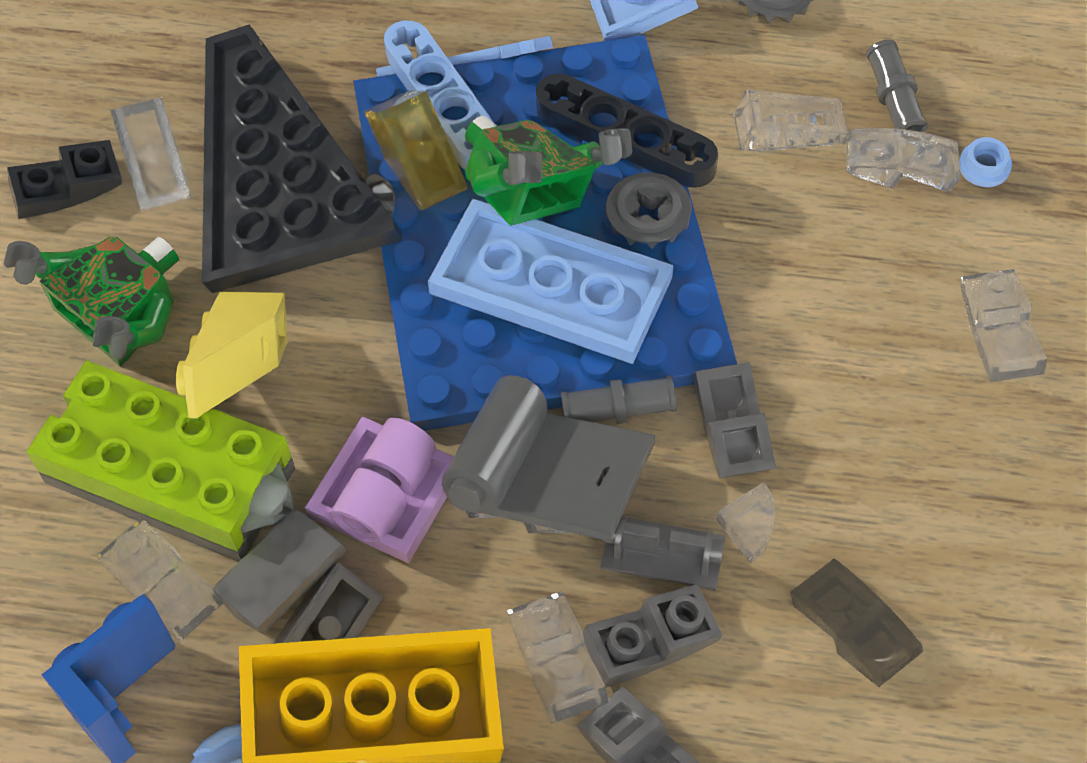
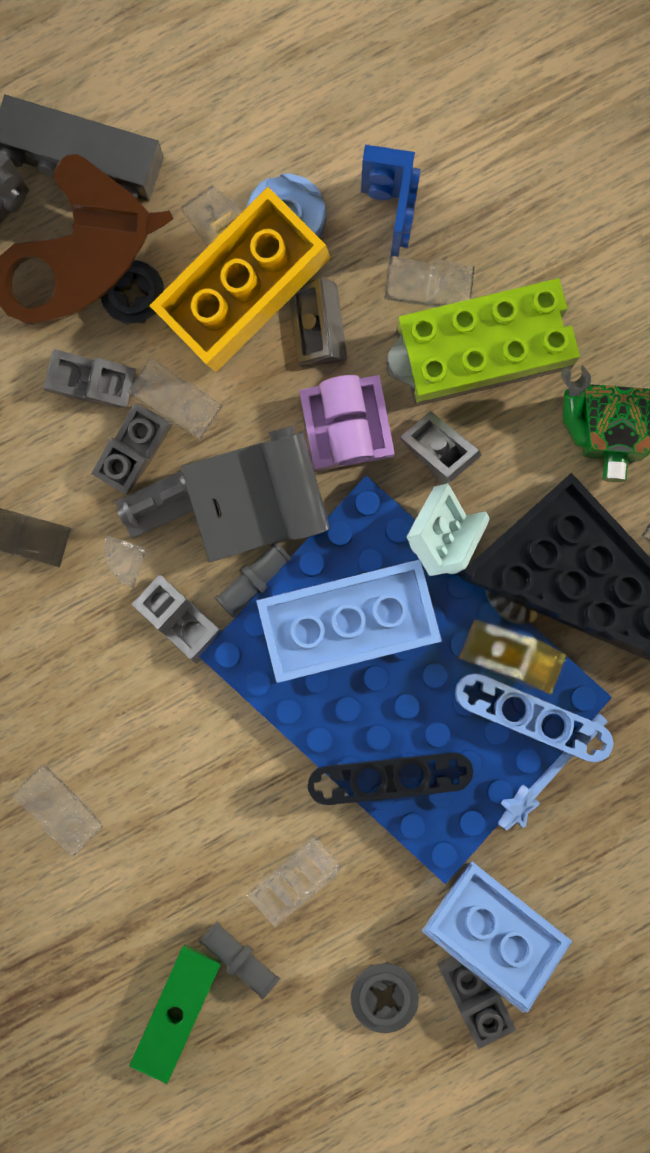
camera: 145 degrees right, 25 degrees up
(235, 347) = (500, 433): light yellow slope -> none
(278, 571) = (362, 330): flat silver slope -> none
(309, 382) = (440, 448): none -> flat silver slope
(375, 288) = (445, 534): none -> light aqua bracket
(532, 171) = (417, 687): green torso -> none
(653, 192) = (309, 731): dark grey gear -> none
(892, 153) = (197, 899): clear slope -> none
(986, 152) = (136, 949): light blue plate -> none
(993, 84) = (164, 1033): none -> green tile

